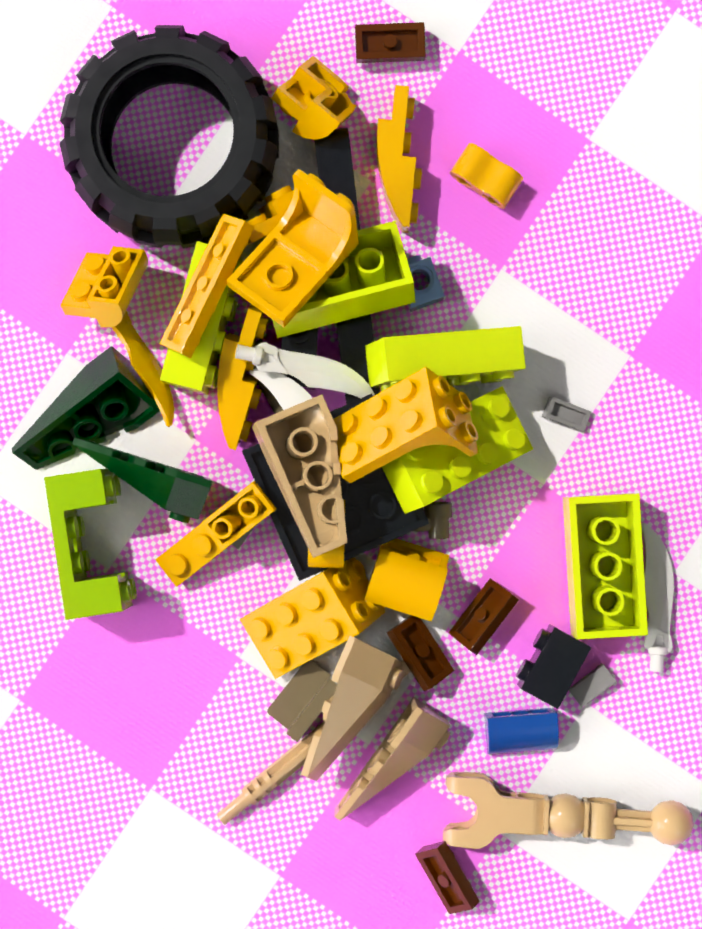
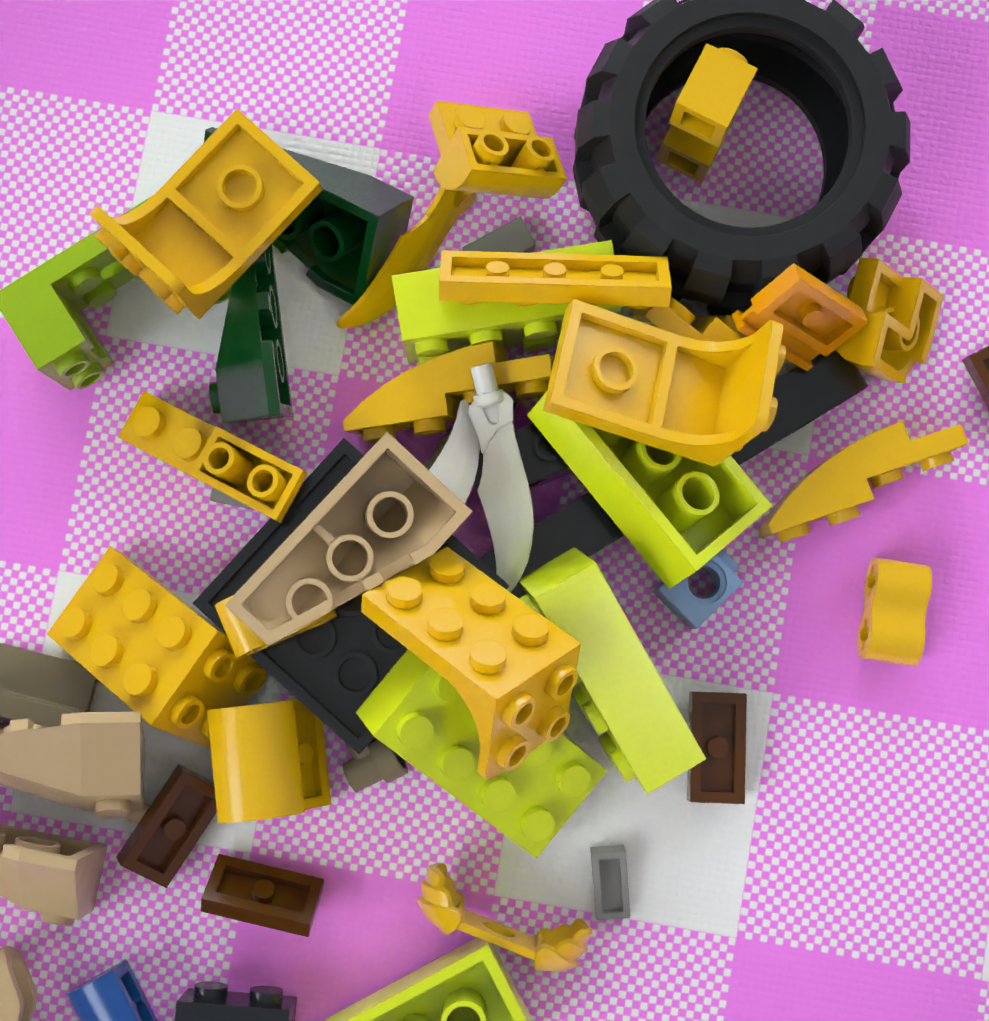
camera: 60 degrees right, 5 degrees down
(79, 467) = (210, 217): none -> yellow bracket
(142, 147) = (705, 111): none -> yellow arch
(161, 307) = (507, 238): none -> light grey piece
(292, 149) = (811, 314): none -> light orange plate
(509, 310) = (720, 731): none -> reddish brown plate
(588, 465) = (549, 949): none -> yellow piece

